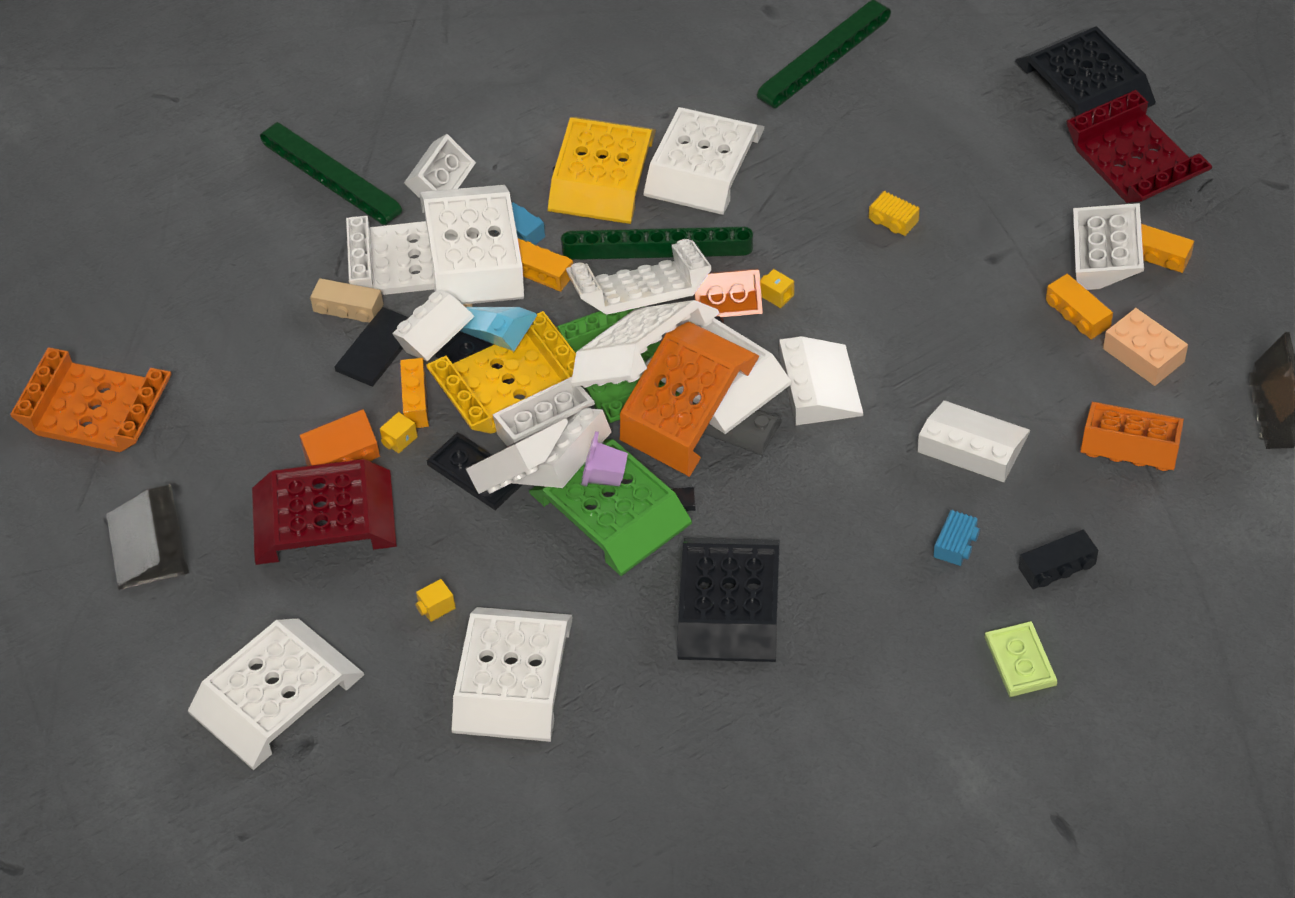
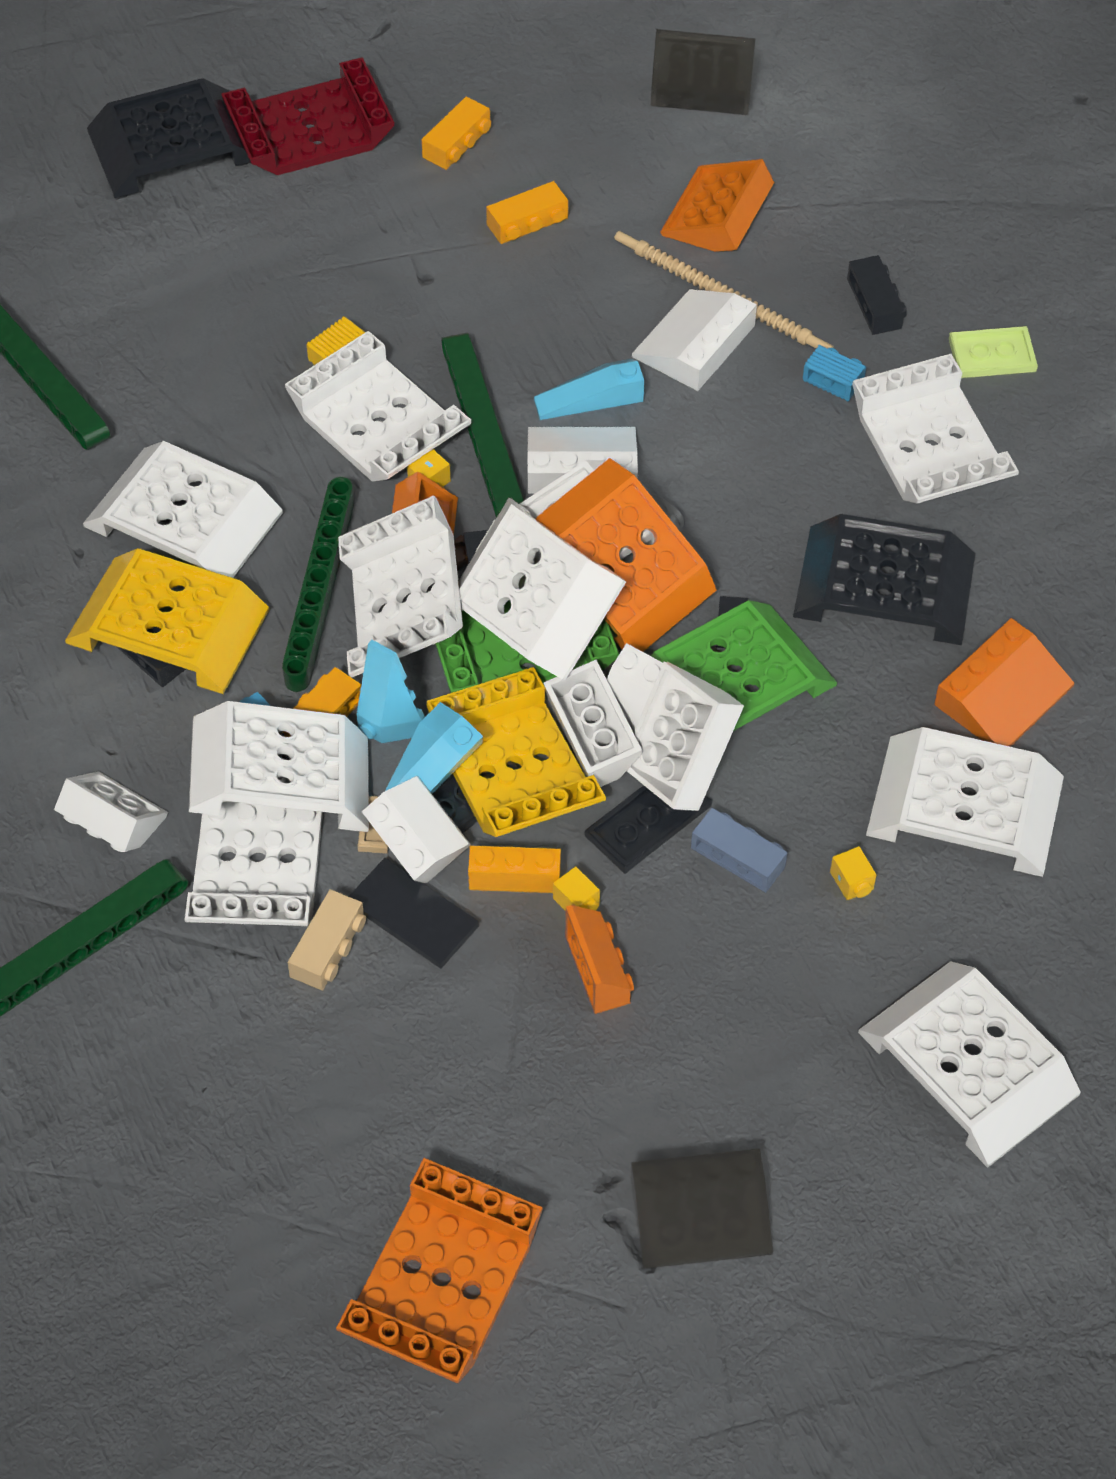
camera: 85 degrees left, 5 degrees up
(355, 508) = (692, 1027): dark red slope -> none
(449, 525) = (739, 849): none -> sand blue brick
(541, 287) = (385, 702): none -> medium azure wedge
(603, 464) = (714, 655): lavender container -> none
(634, 689) = (1003, 686): none -> orange slope
(840, 311) = (484, 428): none -> dark green beam
(848, 229) = (361, 385): none -> white slope
(897, 383) = (597, 389): none -> medium azure wedge
(929, 598) = (923, 405): none -> white slope
(1030, 453) = (643, 248): none -> tan hose
(1107, 244) = (453, 165): white slope -> none
(1145, 346) = (601, 170): light nougat brick -> none

